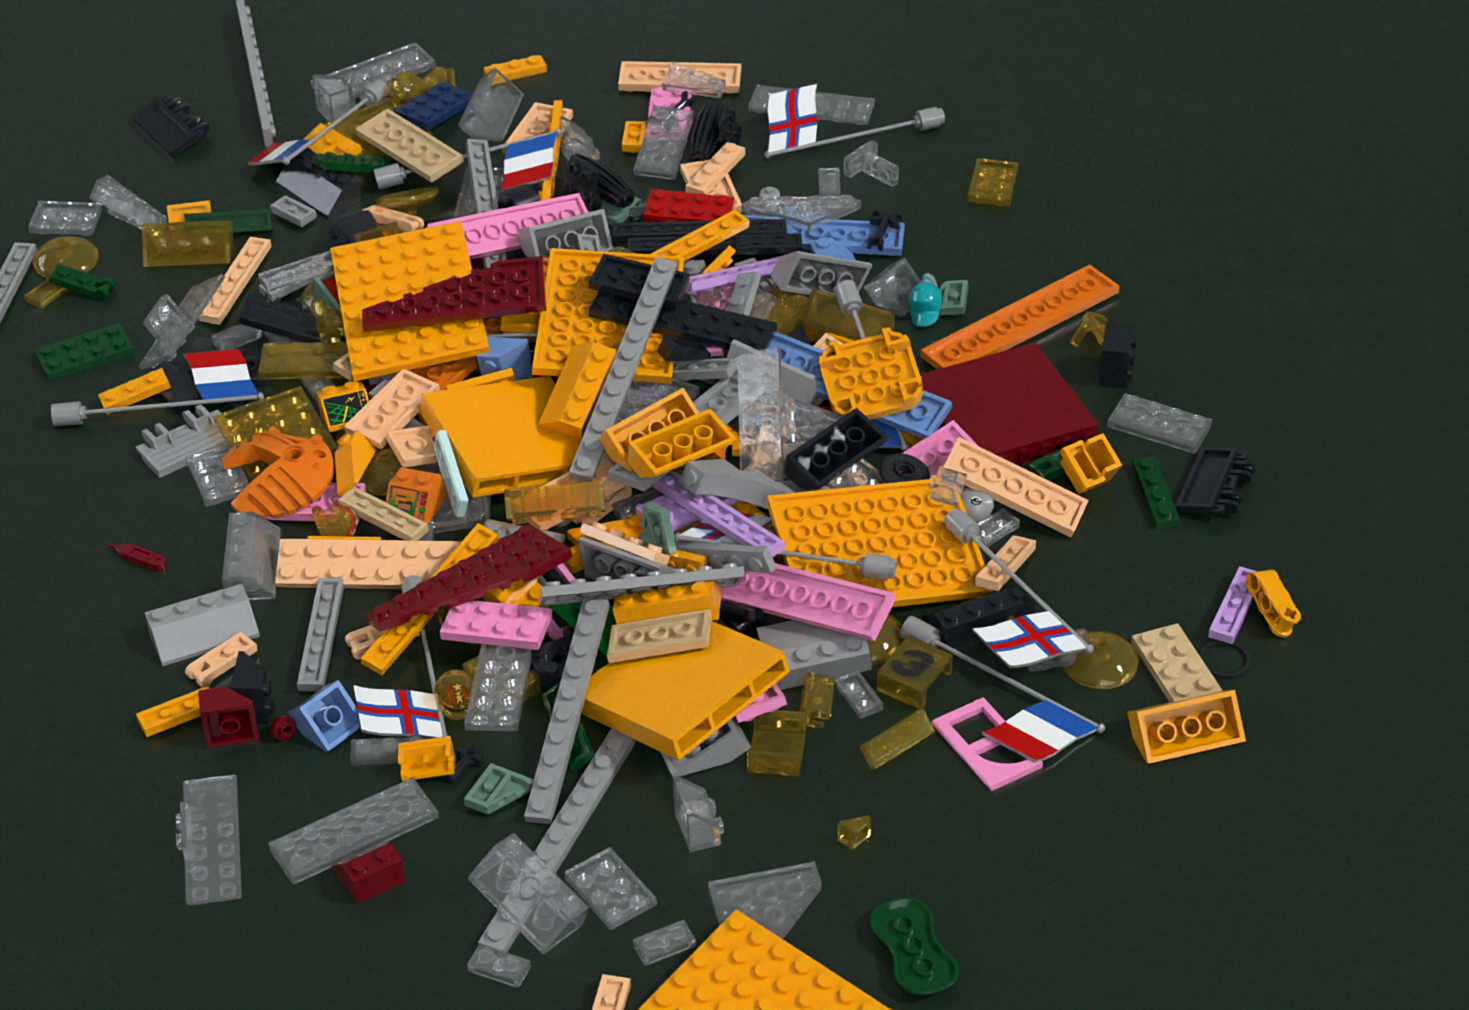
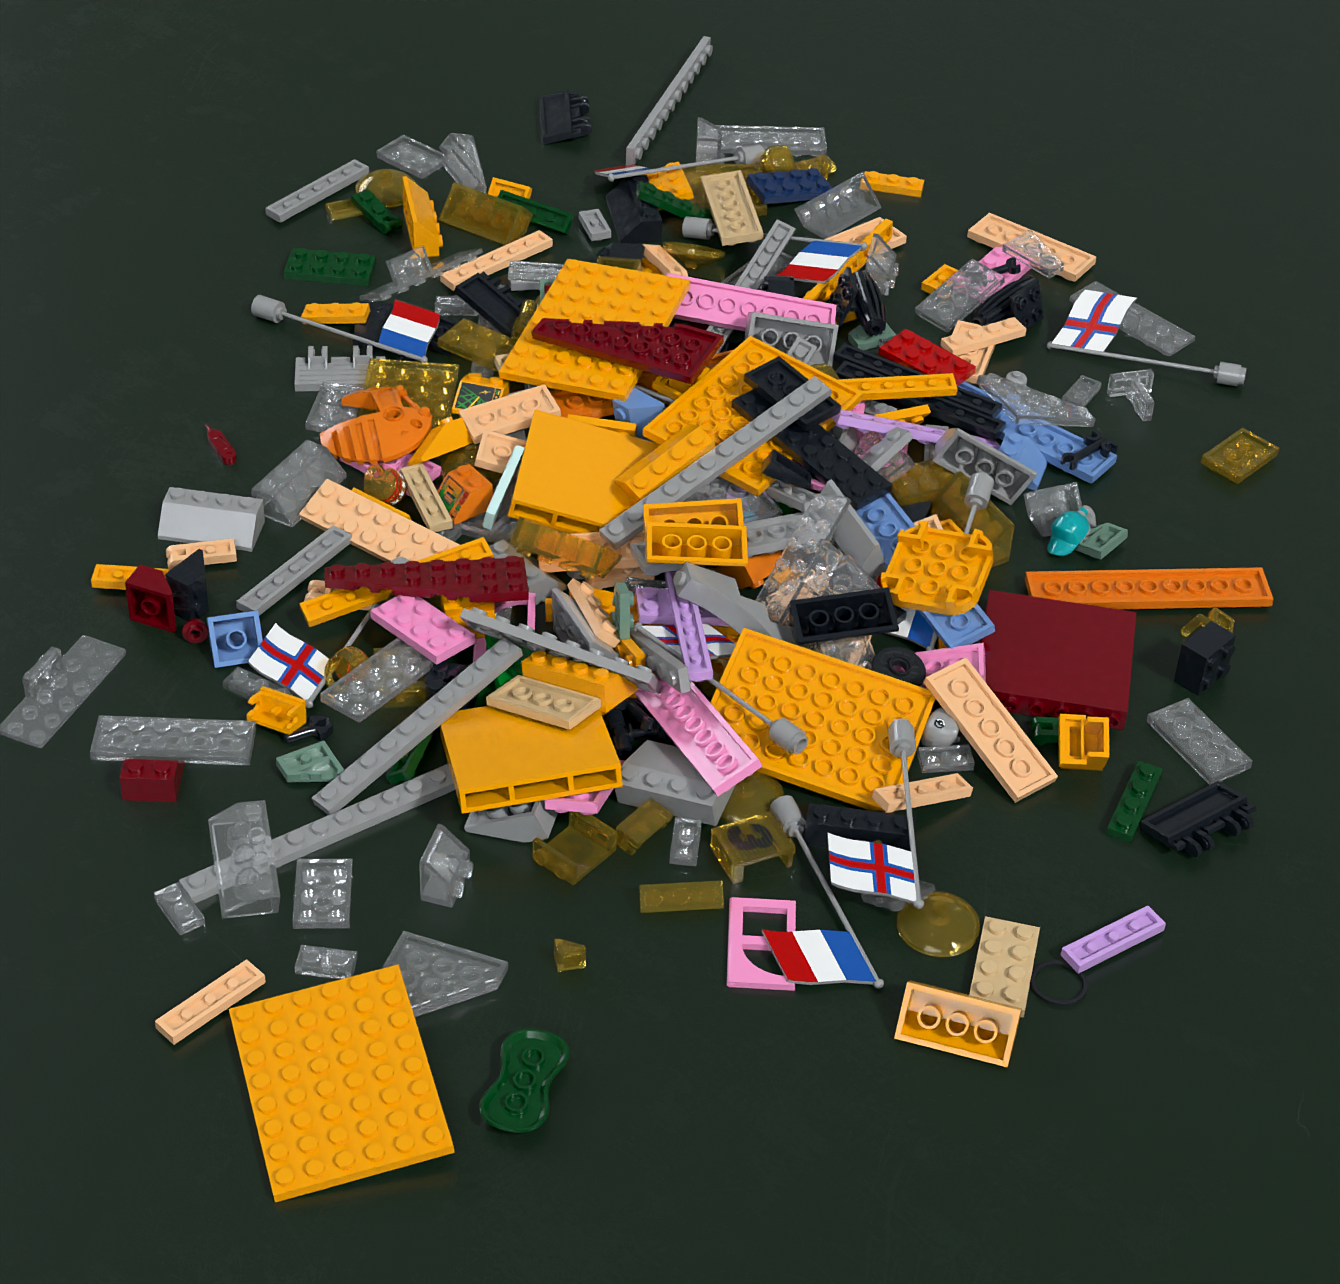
camera: 30 degrees right, 0 degrees up
(132, 273) = (420, 218): none -> light orange slope
(947, 486) = (918, 697): clear brick -> none
(1273, 601) = (1147, 953): light orange piece -> none

